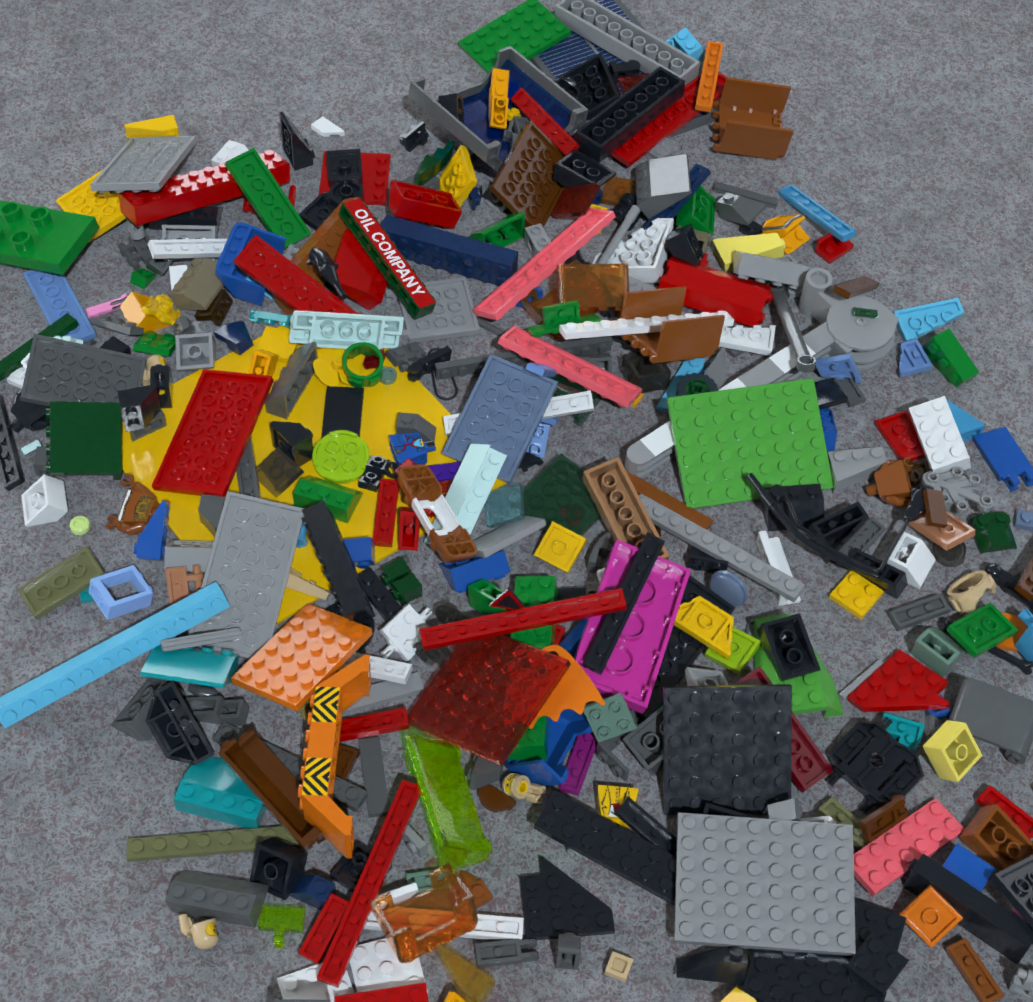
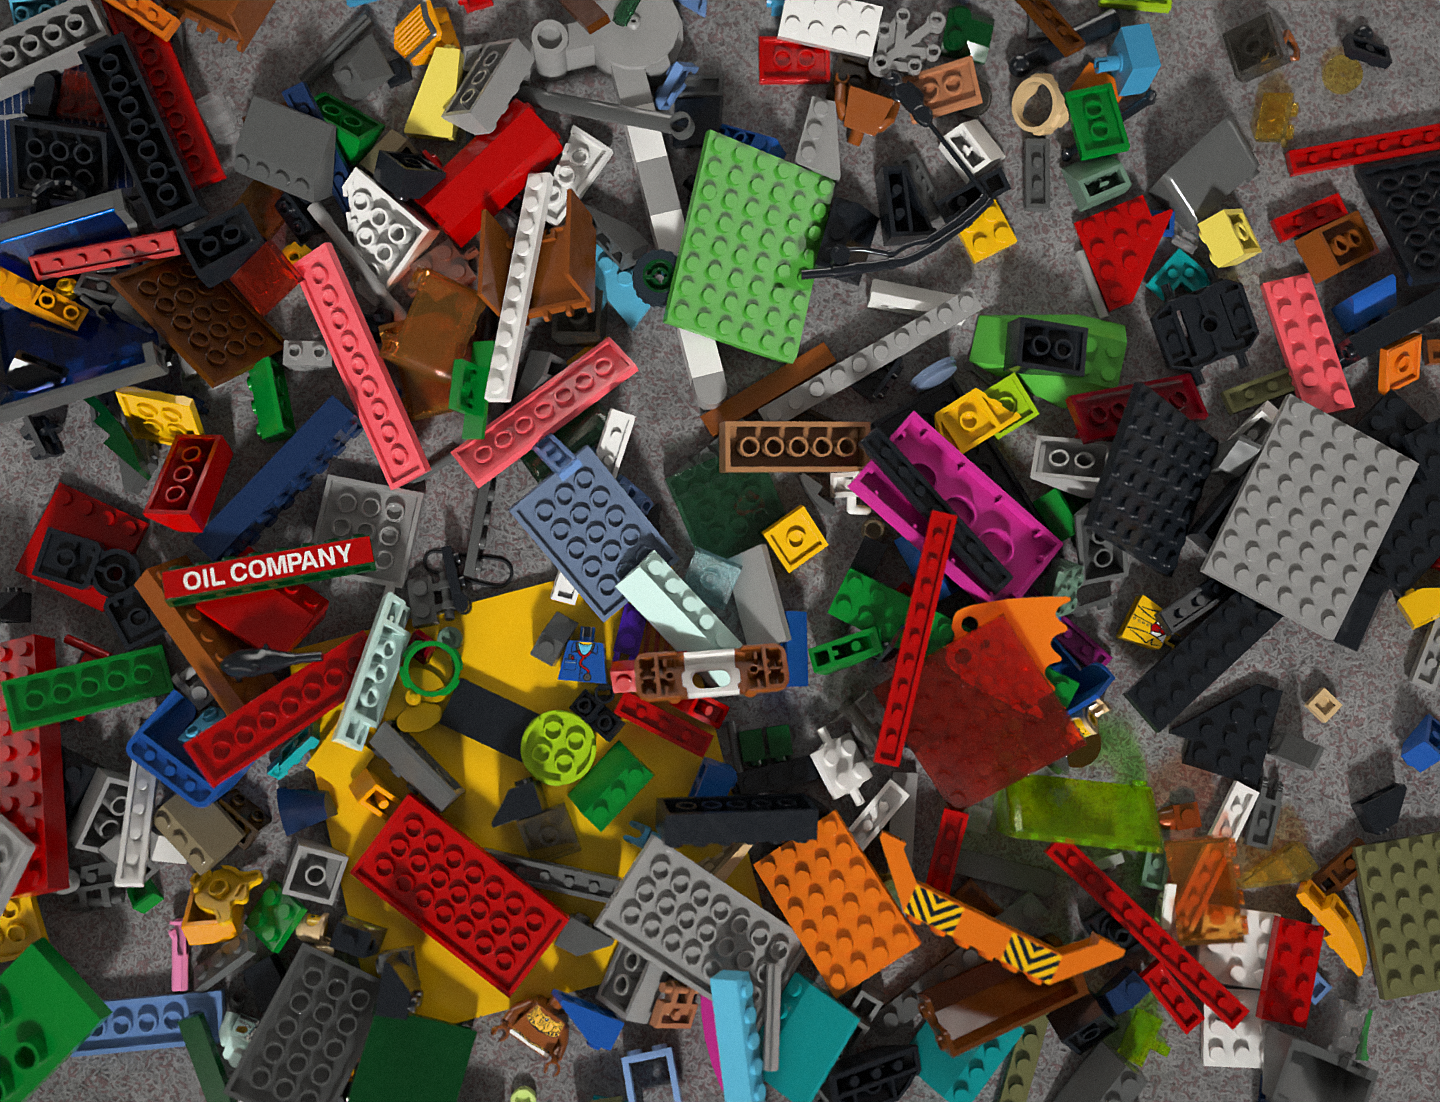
camera: 65 degrees left, 30 degrees up
(185, 325) = (272, 856): dark grey leg -> none
(884, 818) = (1275, 352): reddish brown plate -> none
(935, 508) = (928, 84): reddish brown tile -> none

